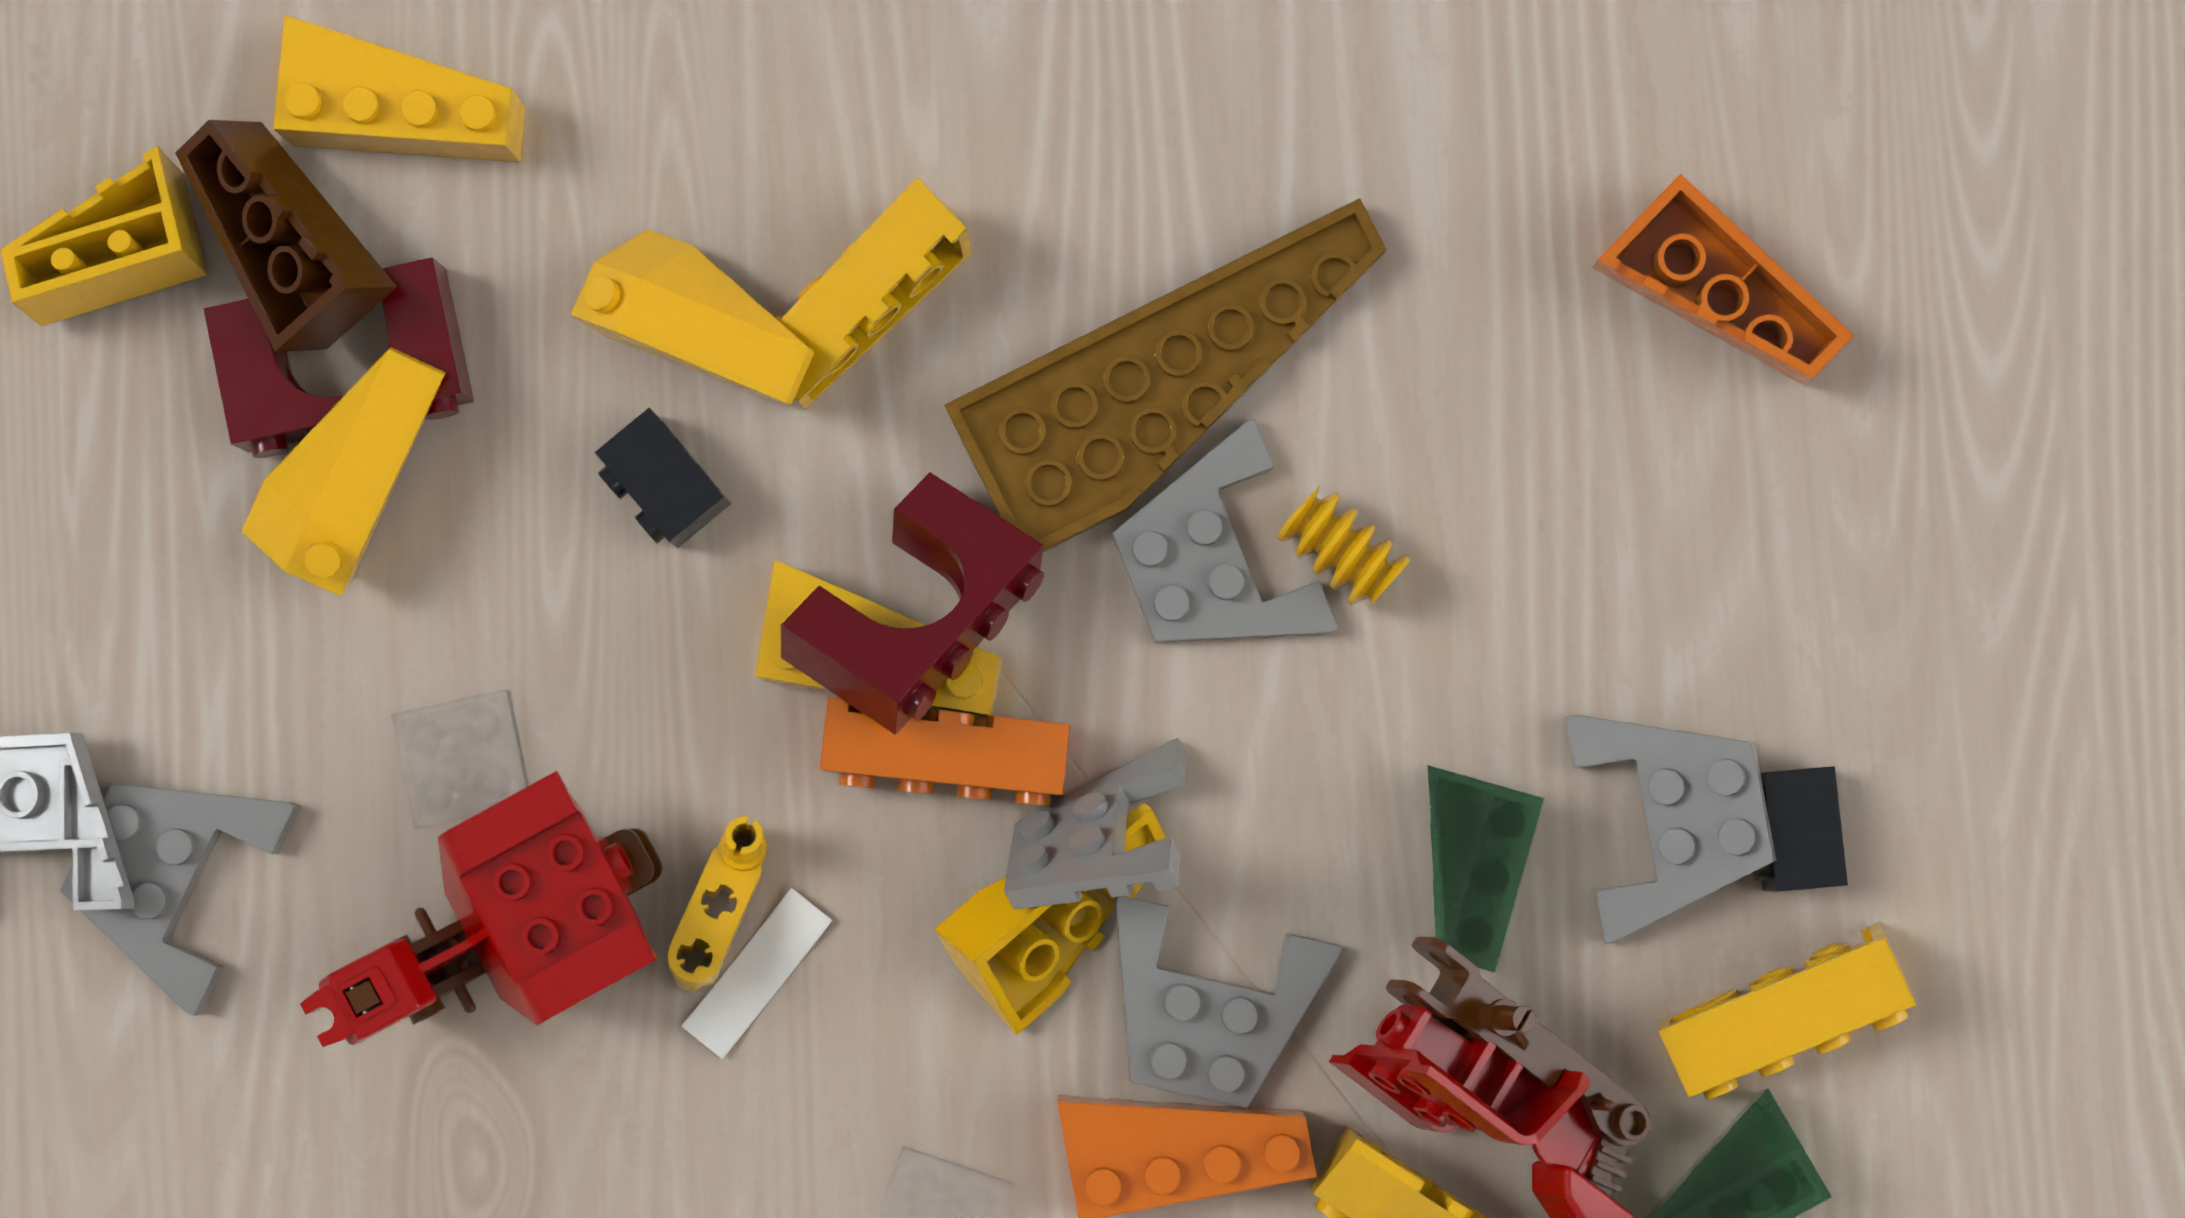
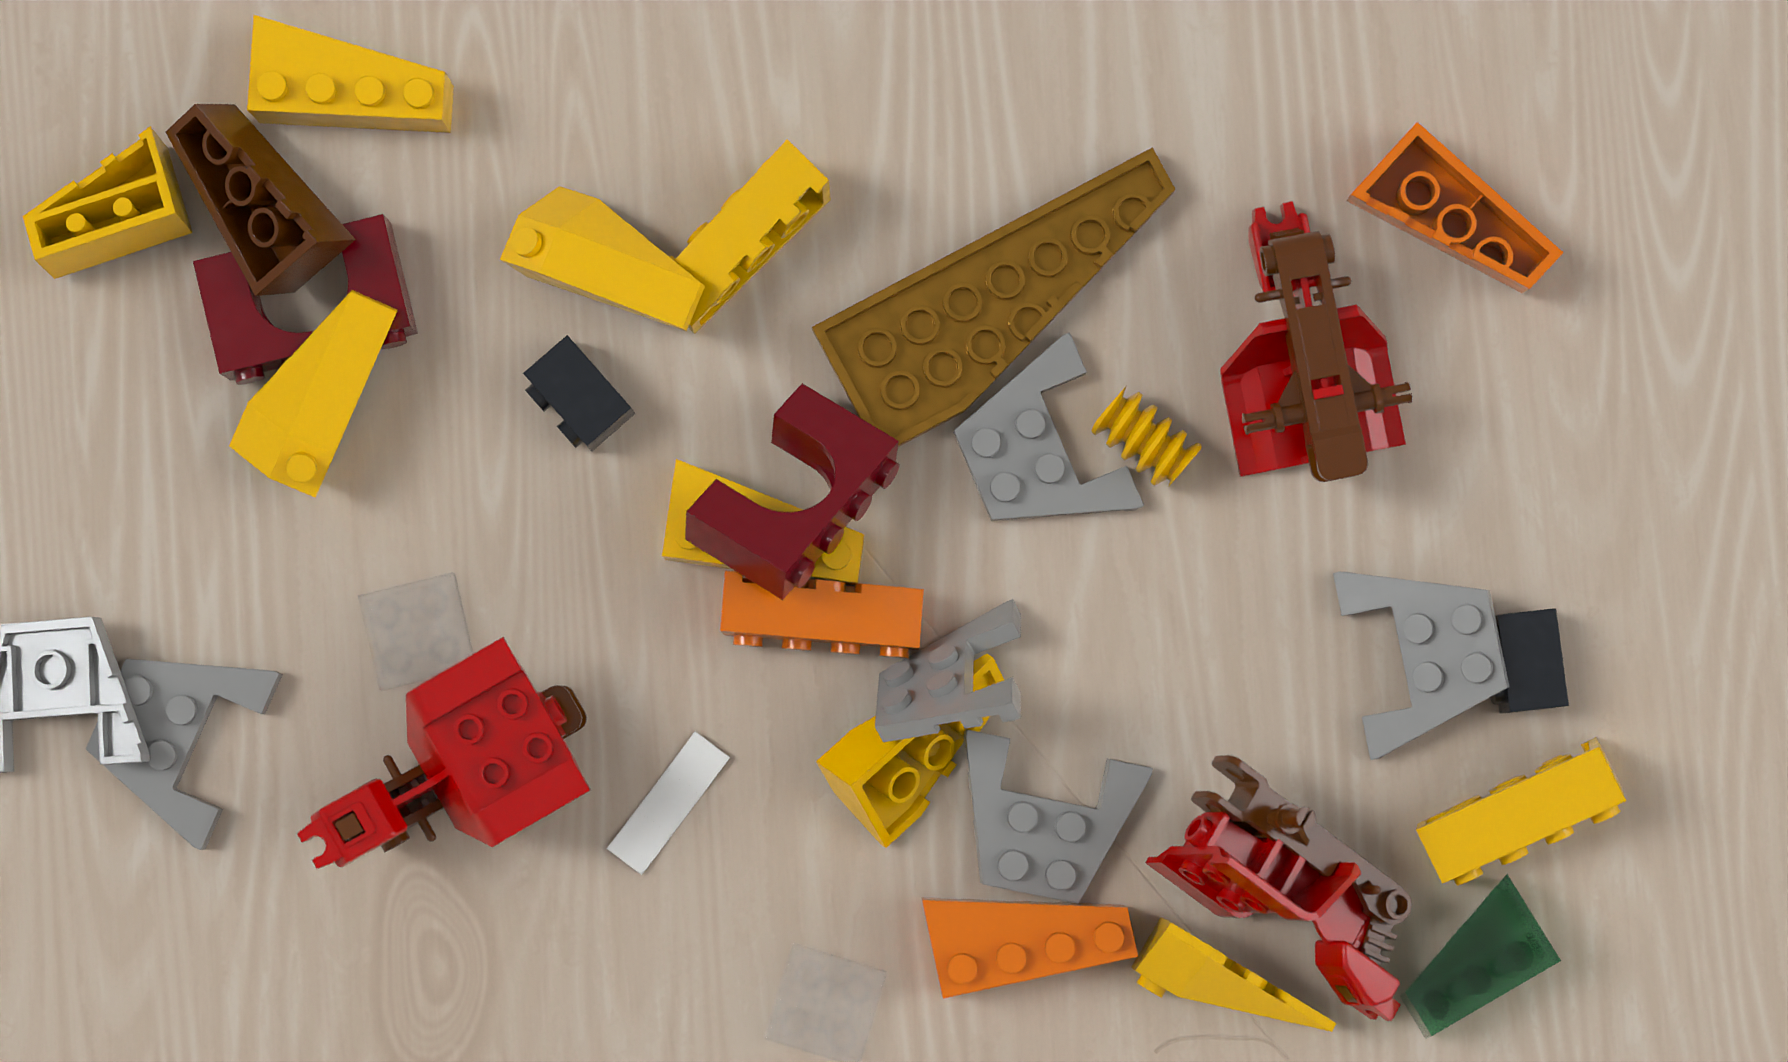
camera: 10 degrees left, 0 degrees up
(728, 871) = (641, 718): yellow beam -> none
(1478, 860) = (1265, 692): clear green wedge -> none
(1545, 484) = (1318, 378): none -> piece

